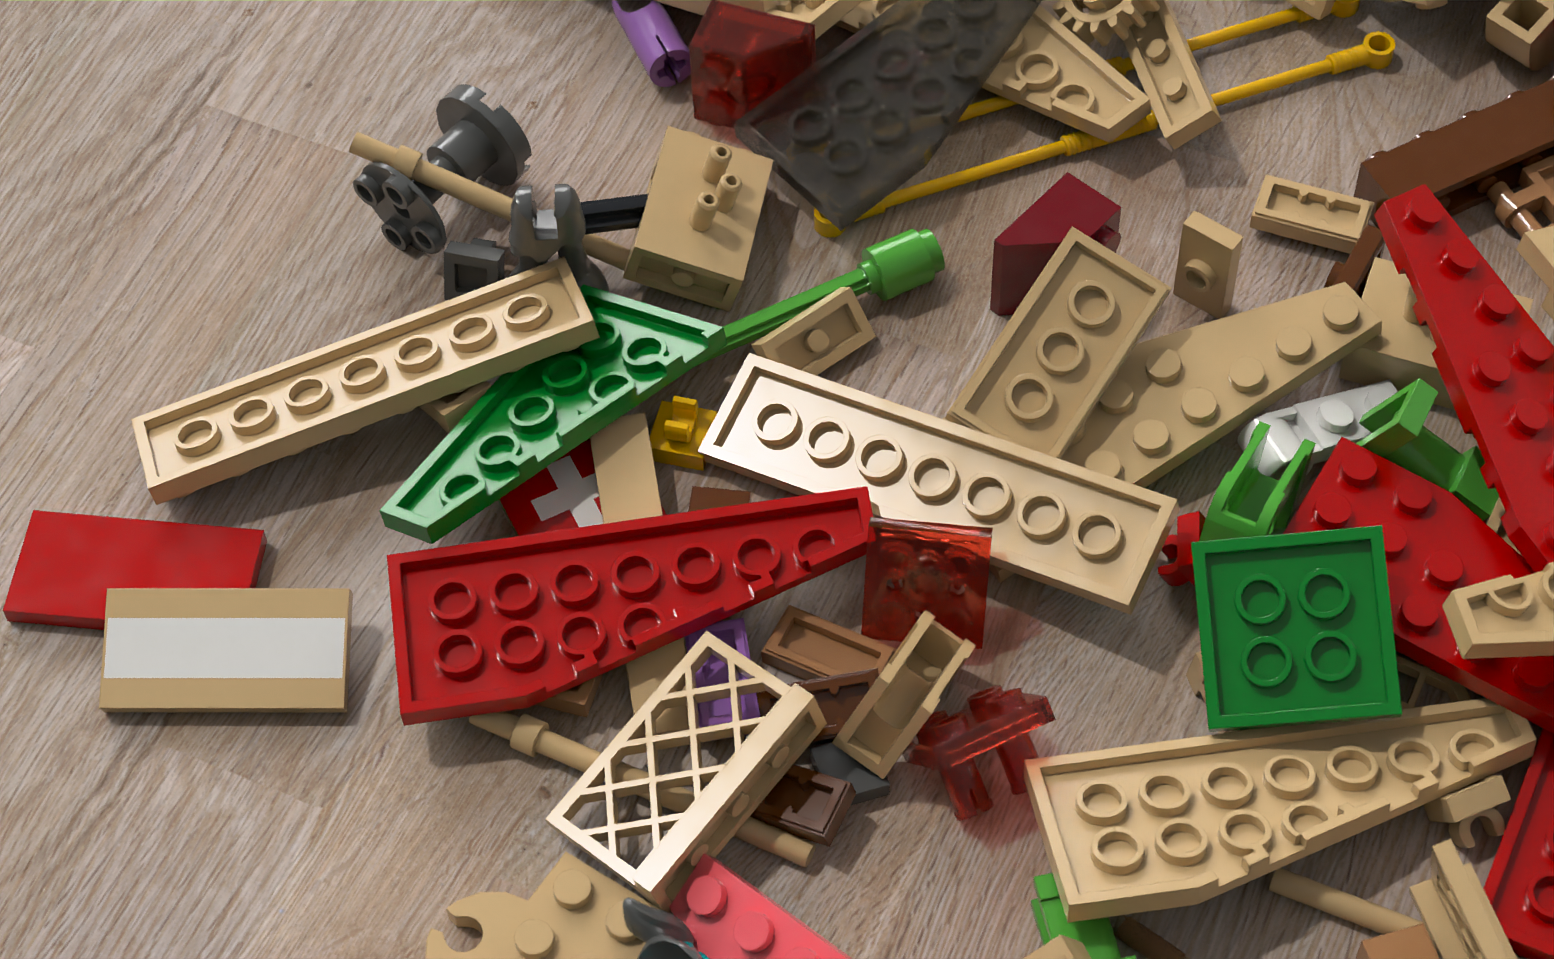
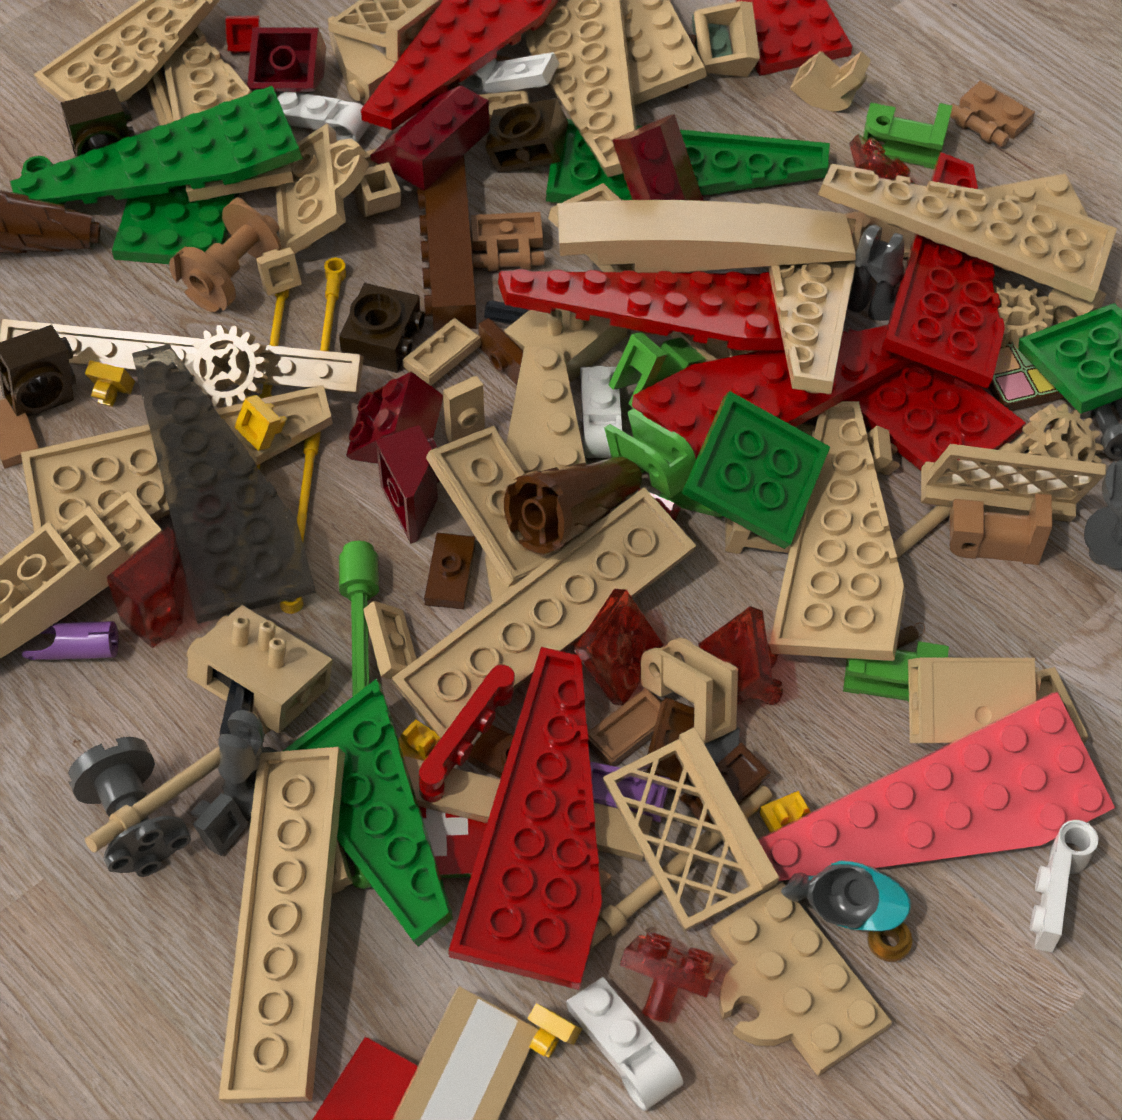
camera: 70 degrees left, 0 degrees up
(332, 836) = (626, 1043): none -> white plate
(347, 718) = (552, 1029): none -> yellow tile
(468, 823) = (670, 970): none -> clear red plate
(698, 451) = (457, 741): none -> red plate
(788, 887) = (784, 811): none -> yellow tile
(945, 366) = (450, 570): none -> reddish brown plate
(1039, 56) = (259, 422): none -> yellow tile
(1088, 411) = (562, 503): none -> reddish brown cone
(1160, 202) = (392, 409): none -> dark red slope
(1305, 128) = (382, 326): none -> dark brown brick

